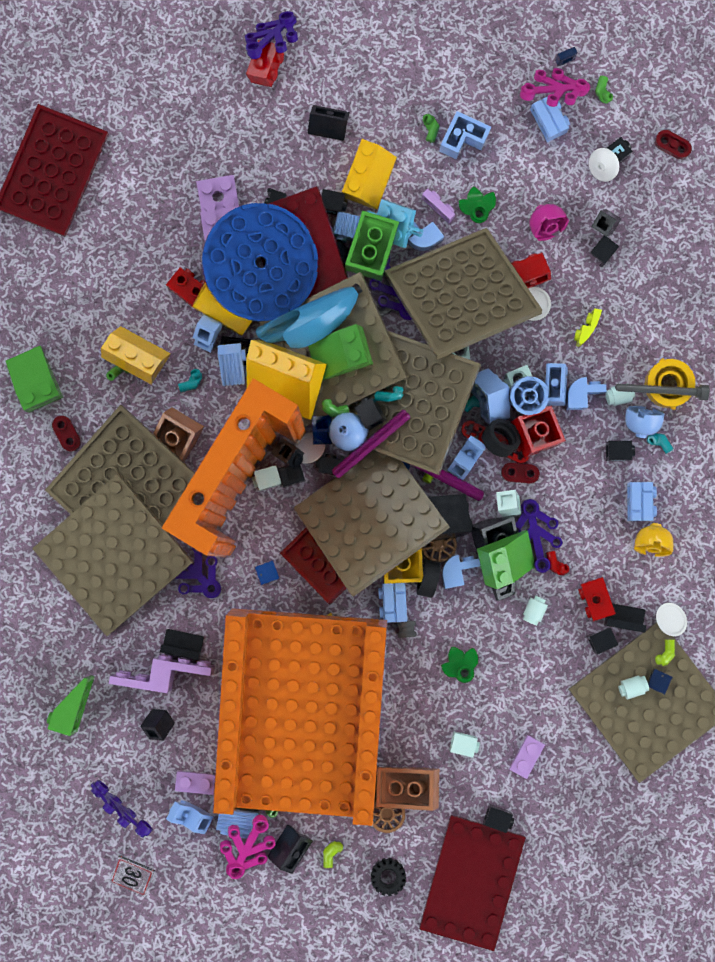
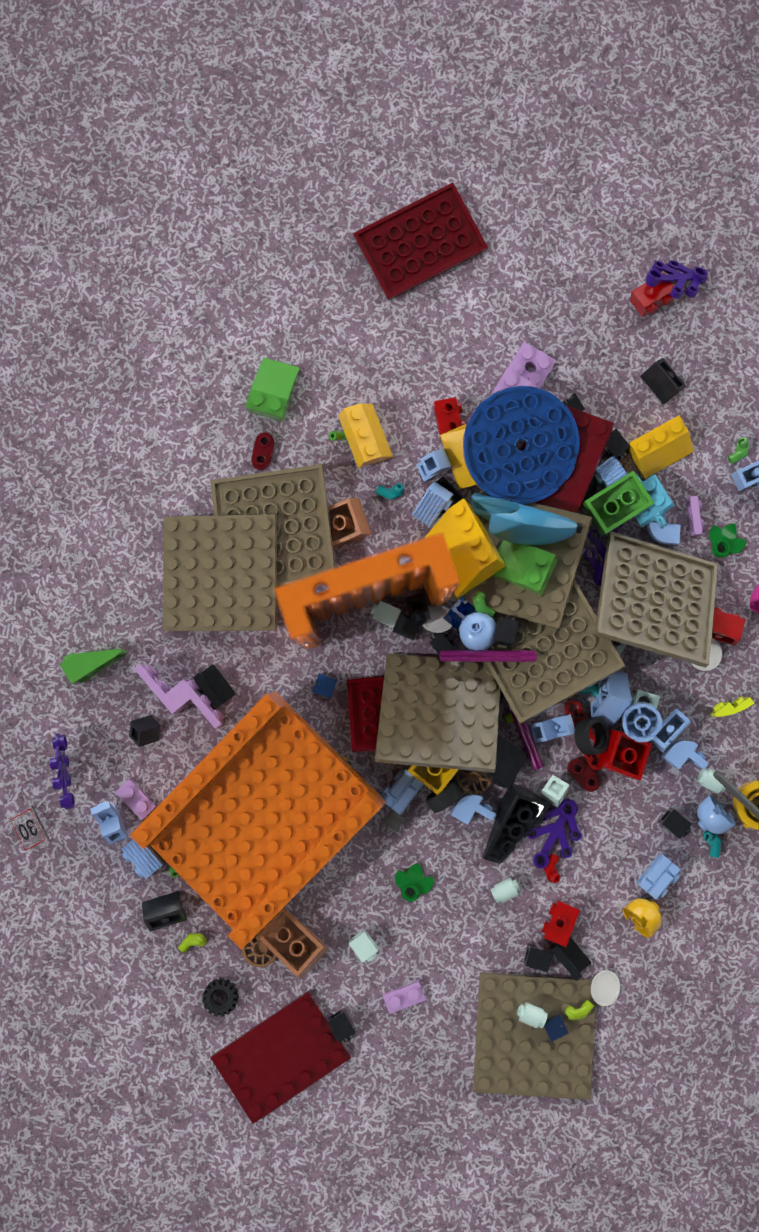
camera: 45 degrees right, 0 degrees up
(195, 572) = (271, 639): dark purple plant -> none
(247, 848) = (112, 890): dark pink plant -> none
(389, 396) = (533, 632): teal arm -> none
(506, 560) = (516, 833): bright green slope -> none

